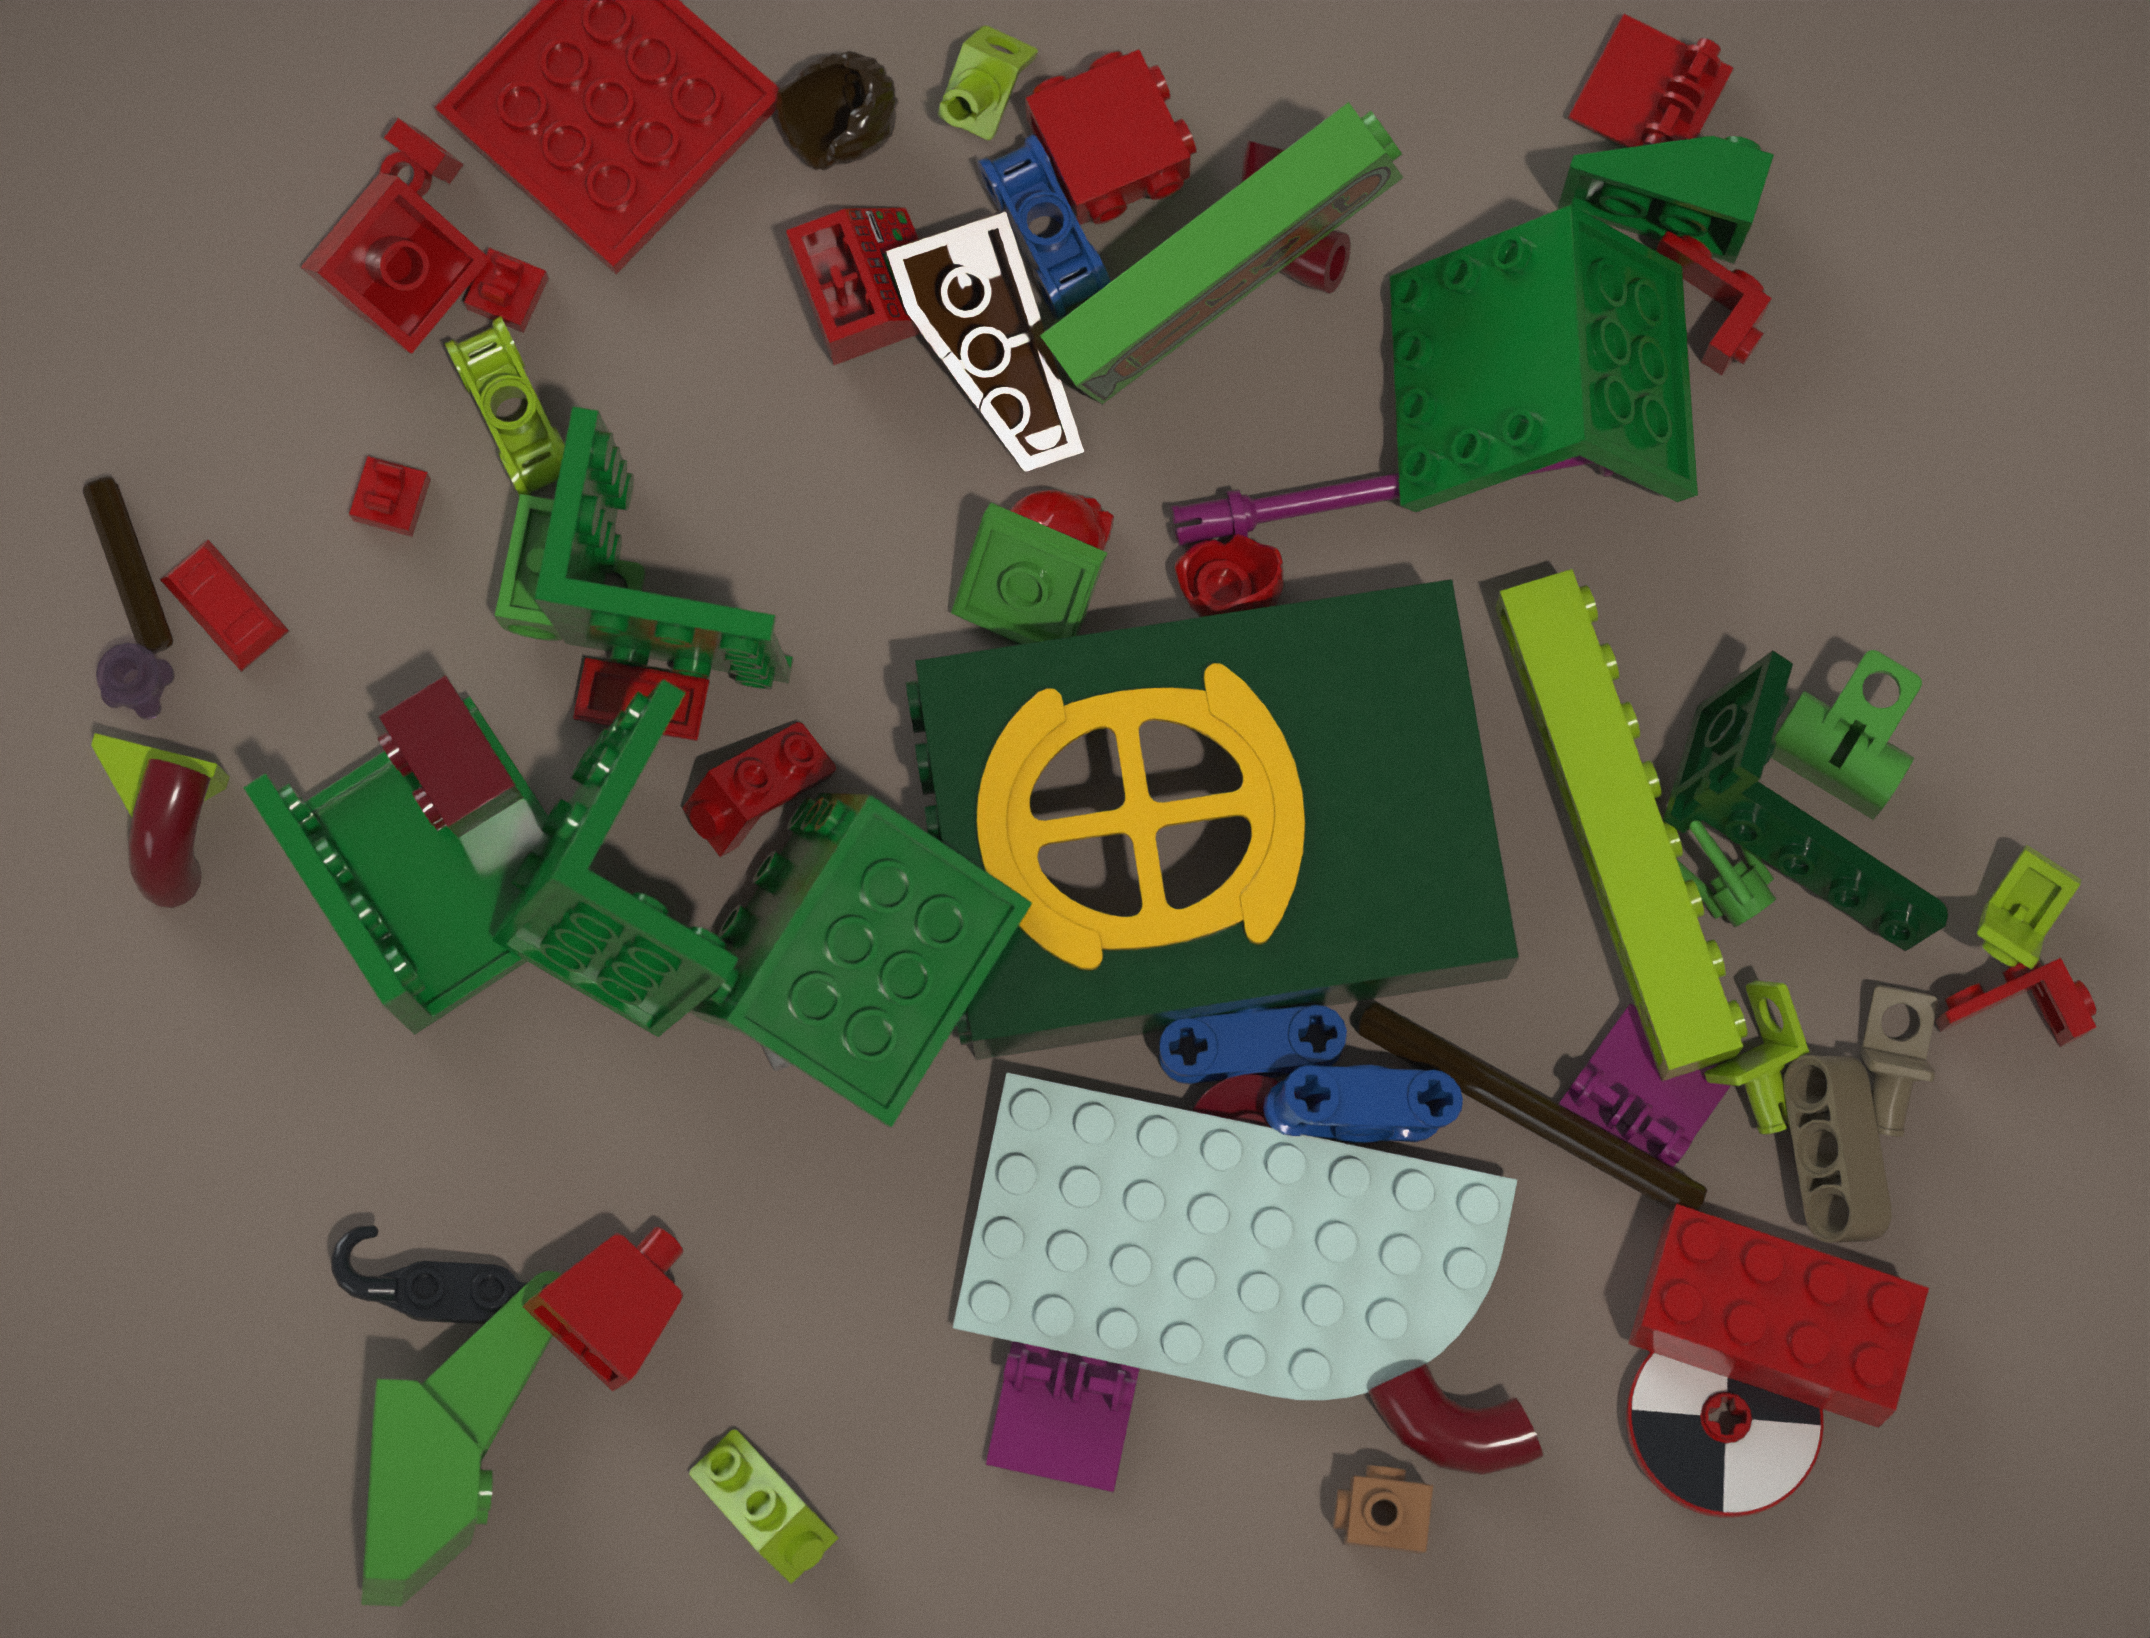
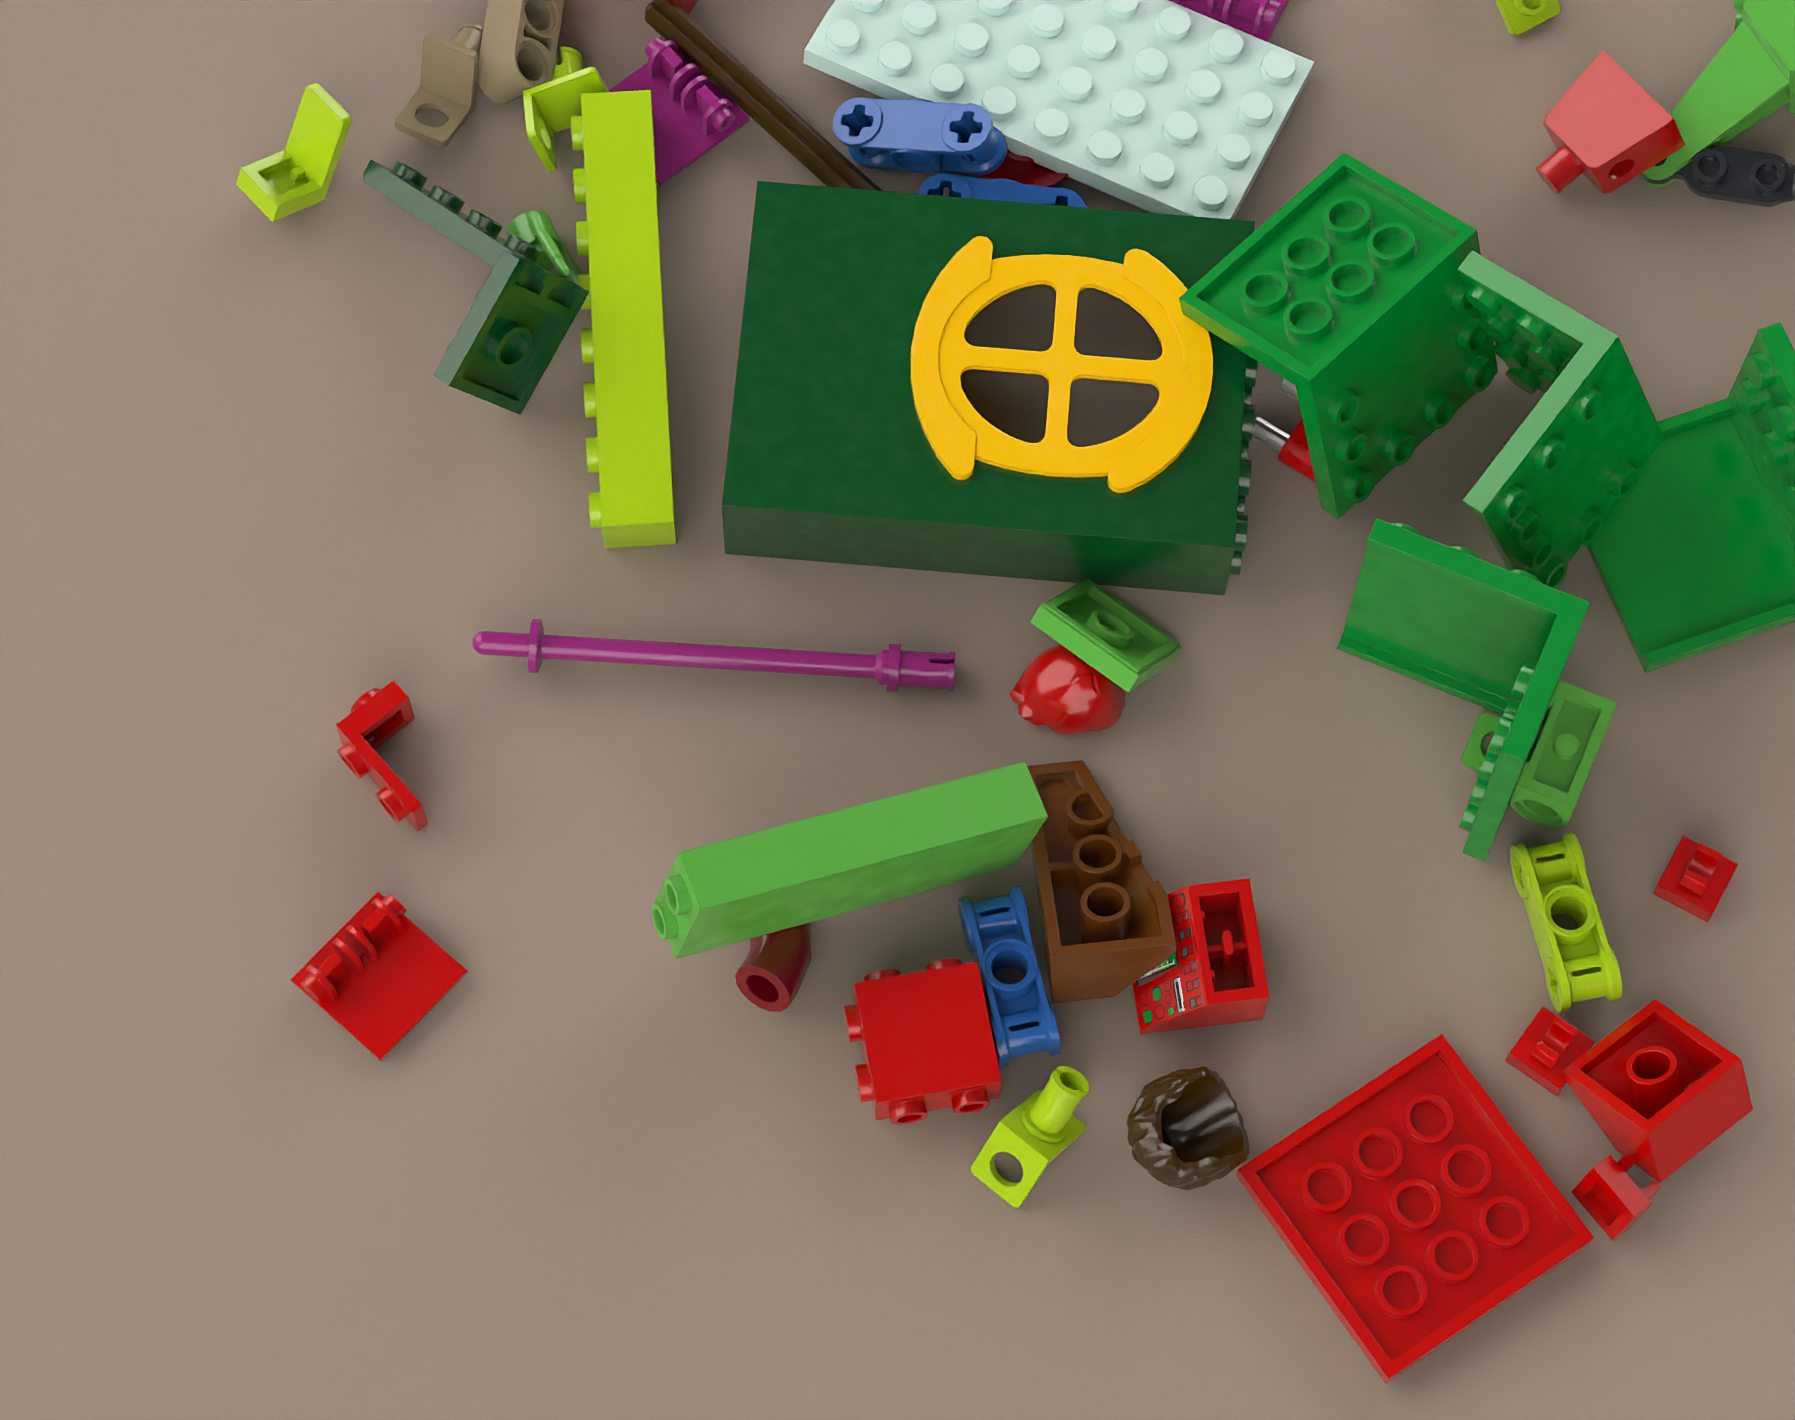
camera: 170 degrees left, 10 degrees down
(449, 757) = (1680, 578): dark red brick -> none
(755, 783) = (1413, 502): red bracket -> none
(1230, 576) = (917, 600): red hair -> none
(1538, 355) = (577, 698): green bracket -> none
(1679, 186) = (390, 846): green slope -> none
(1848, 744) = (399, 326): bright green piece -> none
(2064, 1003) = (368, 106): red bracket -> none

